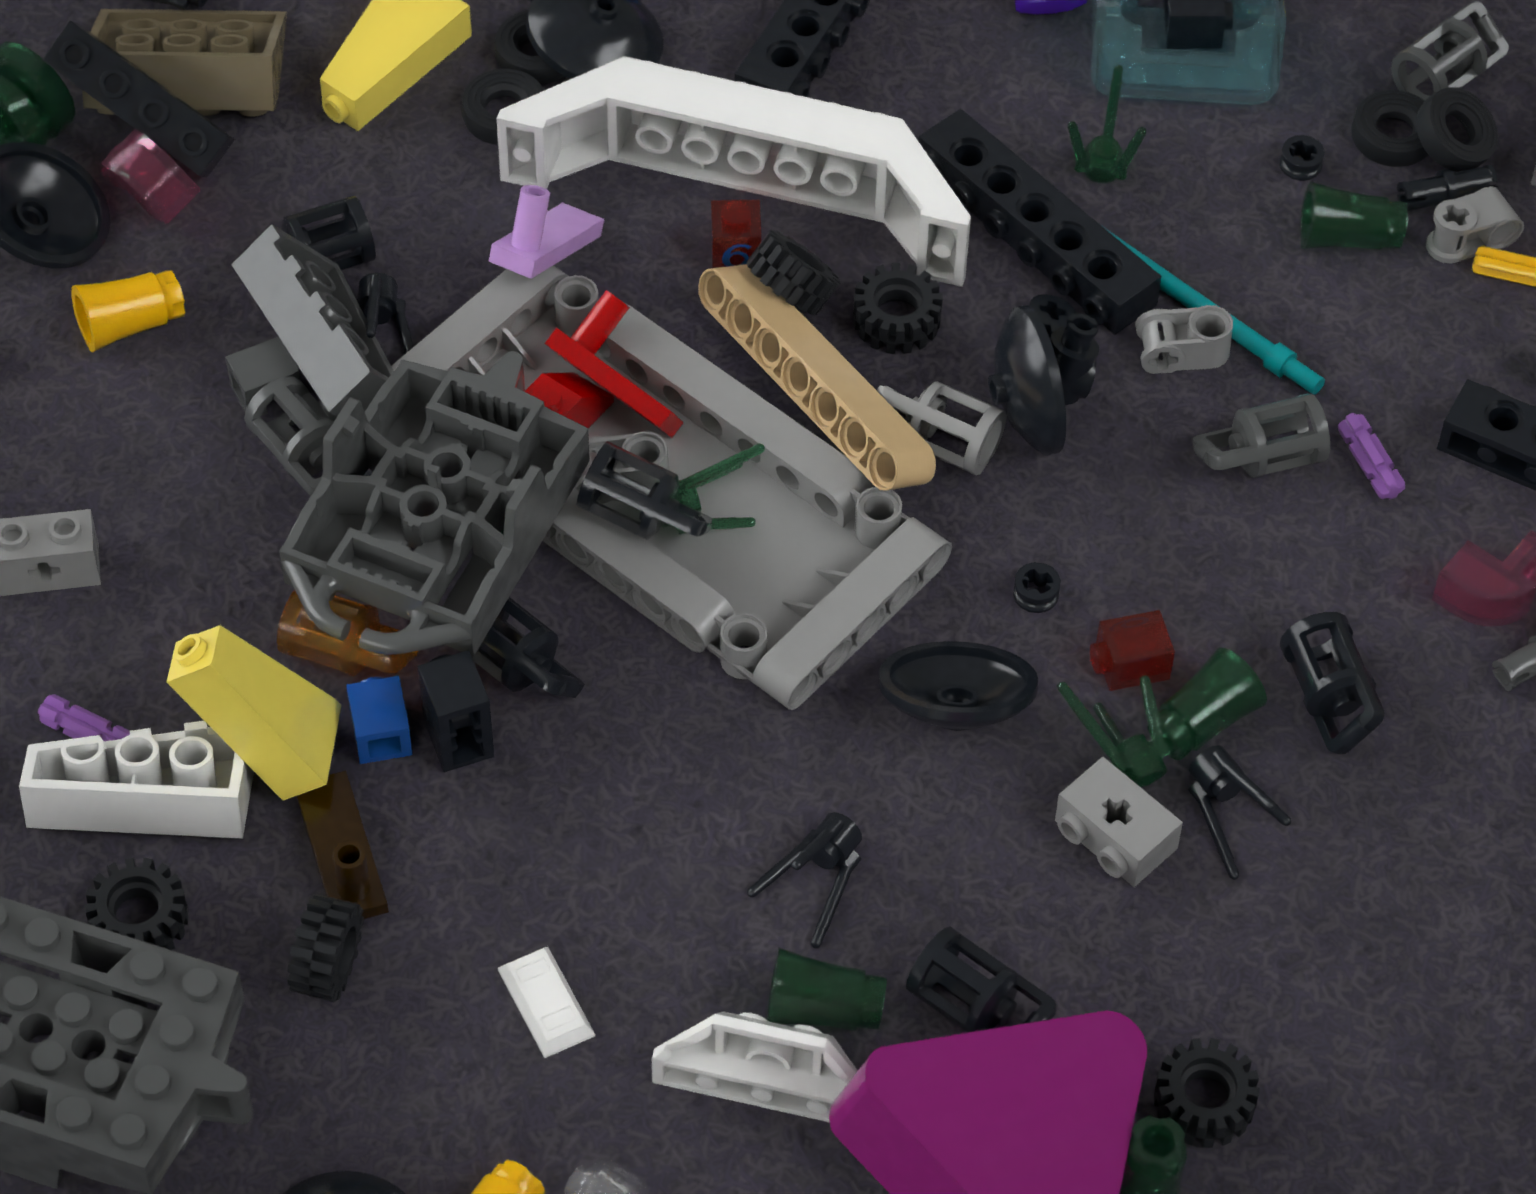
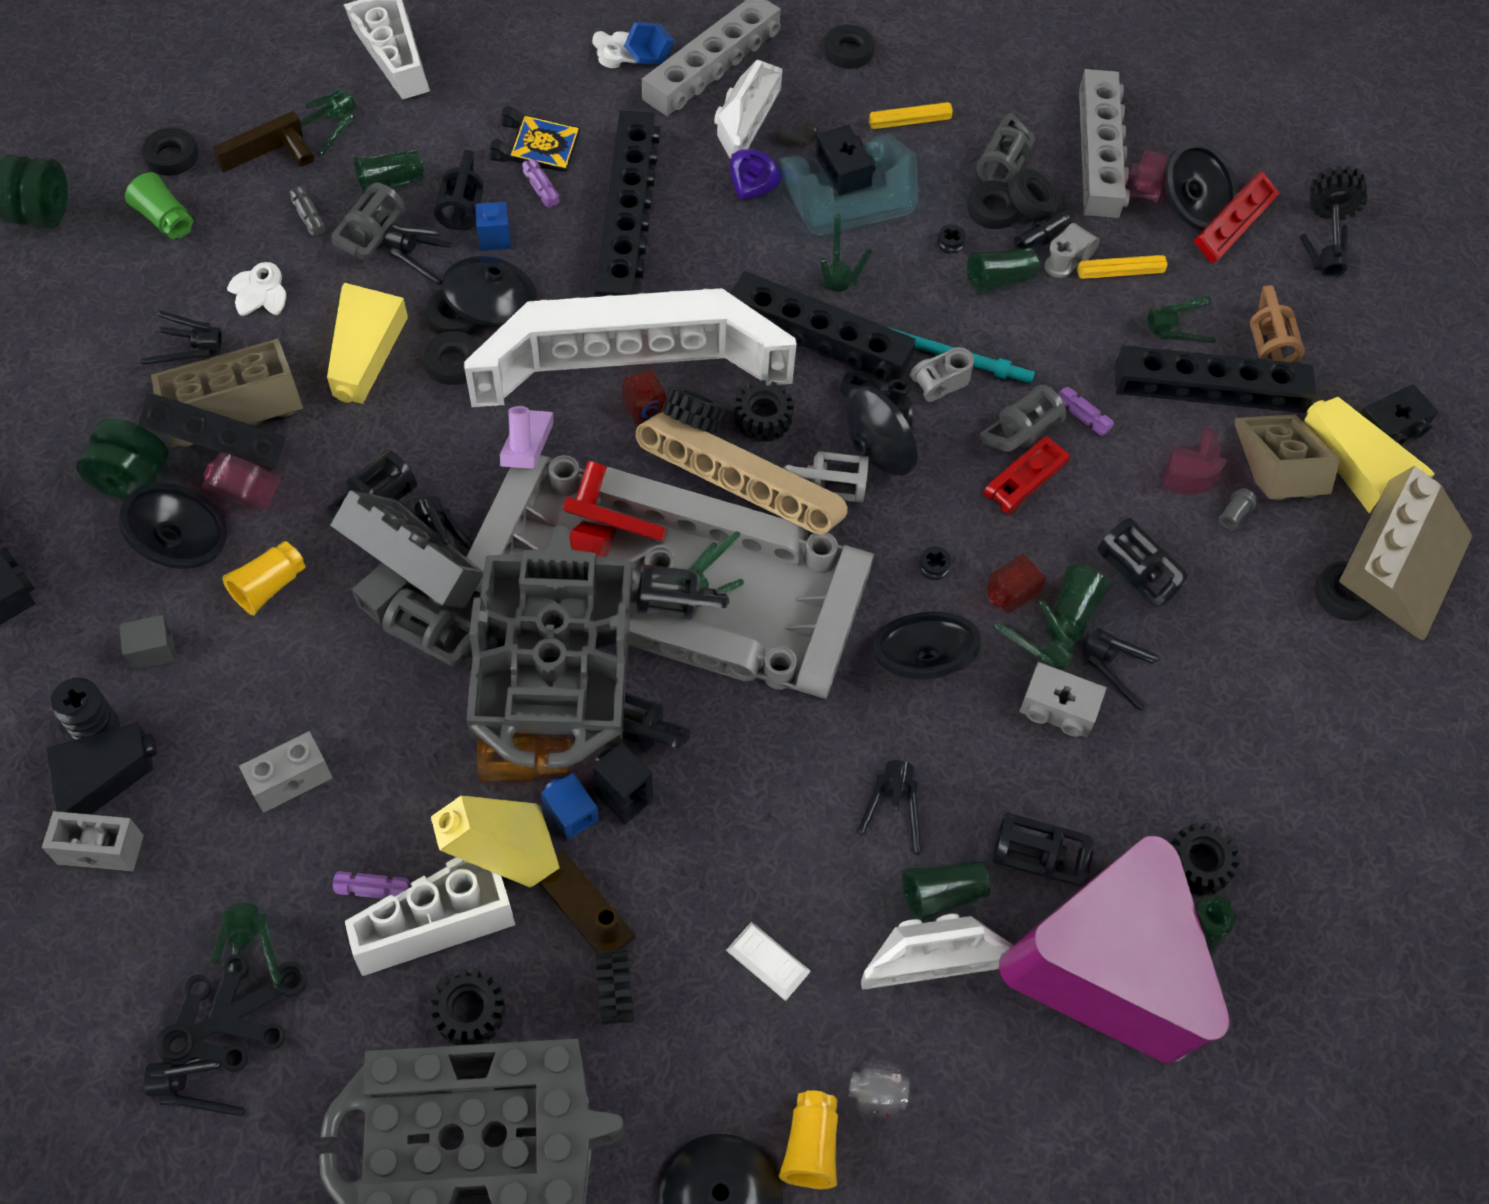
camera: 25 degrees left, 5 degrees up
(1234, 513) = (1027, 474): none -> red plate

